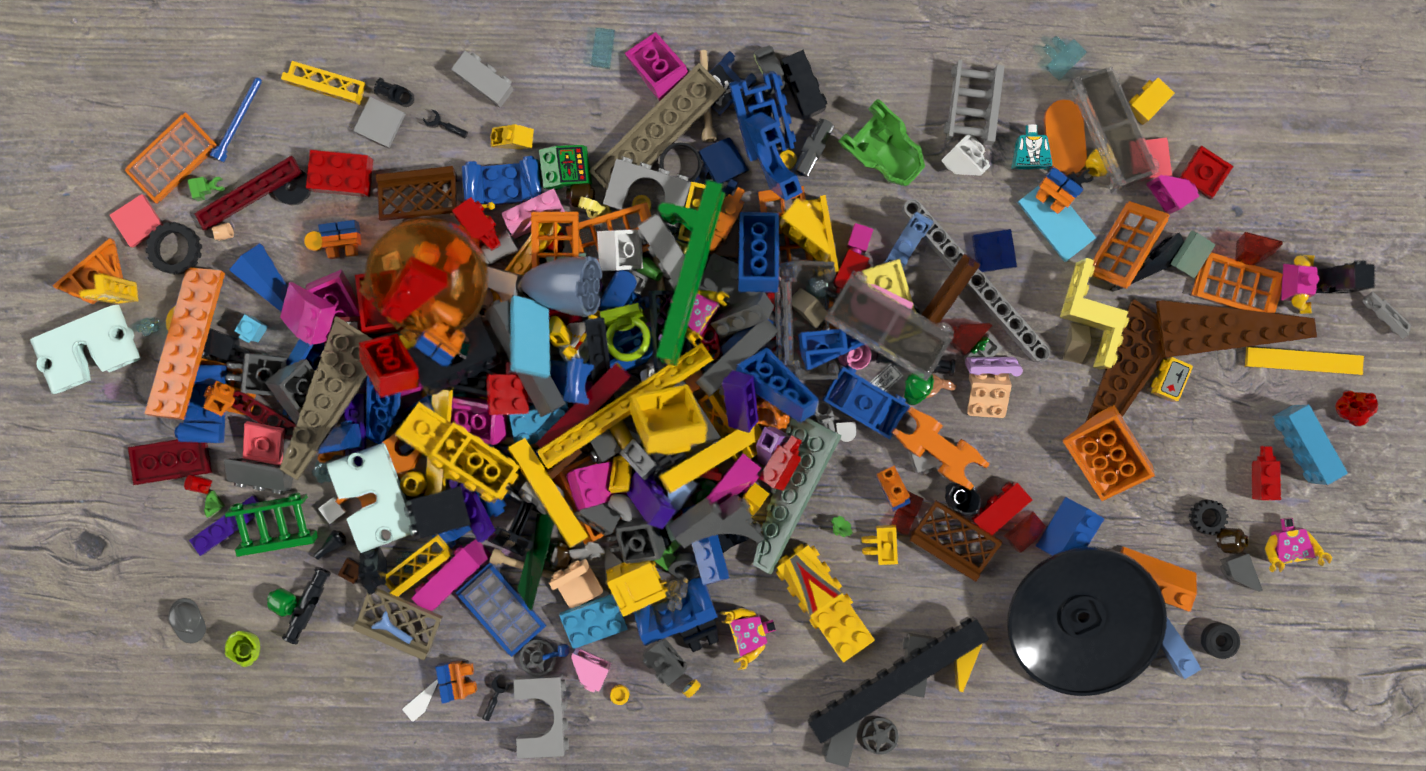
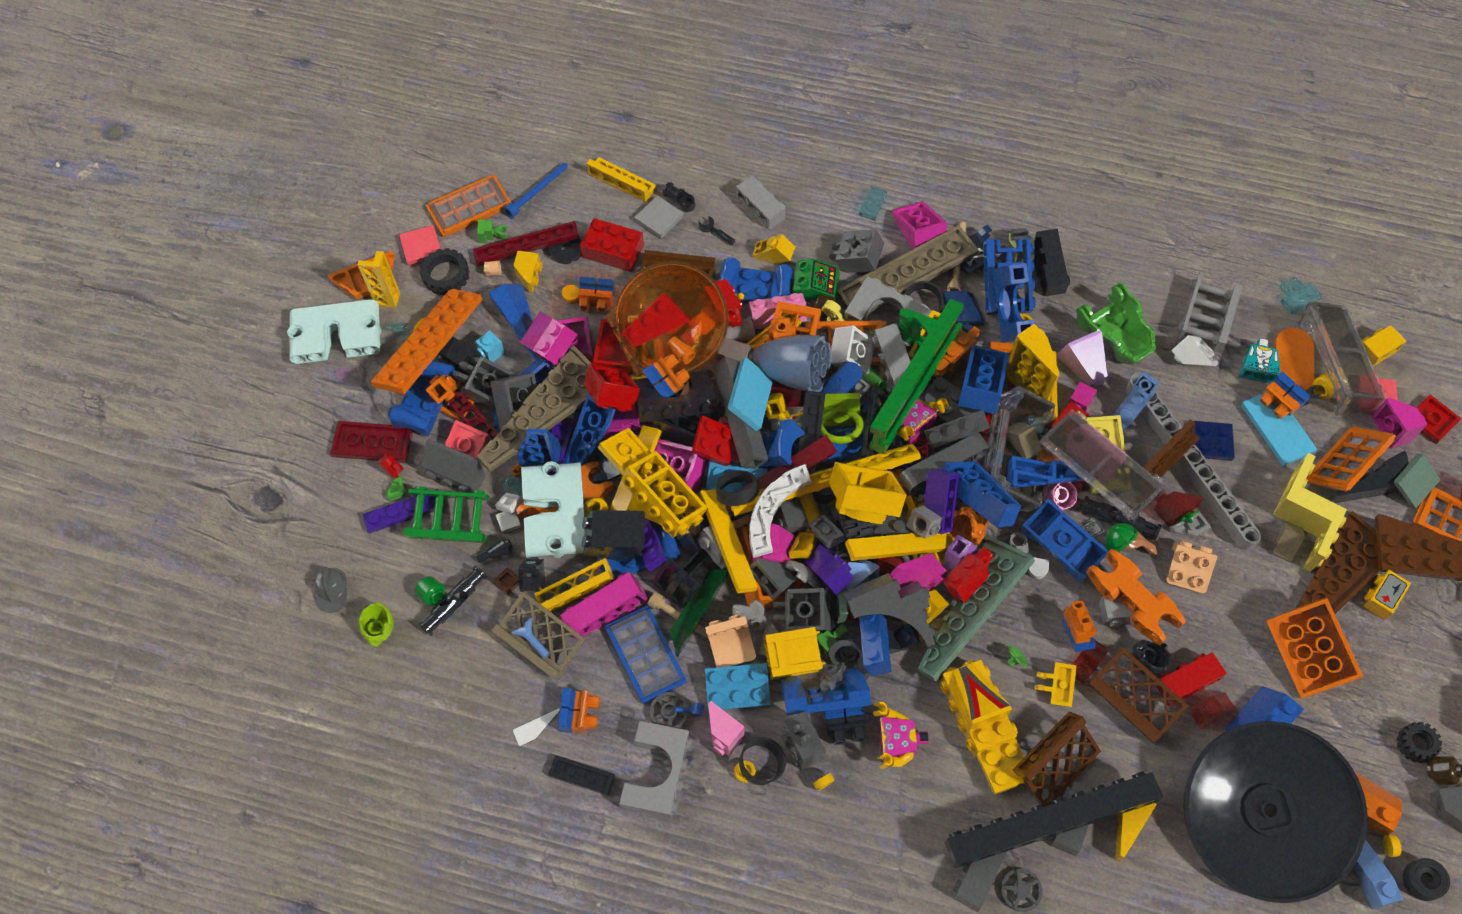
camera: 15 degrees right, 25 degrees down
(260, 225) = (527, 268): none -> yellow slope
(326, 493) = (509, 503): none -> white tile
(476, 735) = (581, 775): none -> black tile
(493, 701) = (611, 743): black piece -> none
(537, 252) = (781, 328): none -> orange brick
(553, 449) = (739, 497): none -> black tyre
(559, 555) = (720, 610): dark brown head -> none
(576, 455) = (768, 504): none -> white tile
(600, 119) = (858, 251): none -> dark grey hinge
(649, 693) = (775, 748): none -> black tyre
(730, 427) = (917, 522): none -> light grey brick
(813, 147) = (1052, 314): dark grey piece -> none
(857, 191) = (1086, 358): none -> slope
(885, 614) = (1050, 748): none -> reddish brown fence
(993, 365) = (1200, 538): lavender plate -> none
(1190, 619) = (1391, 845): none -> yellow tile

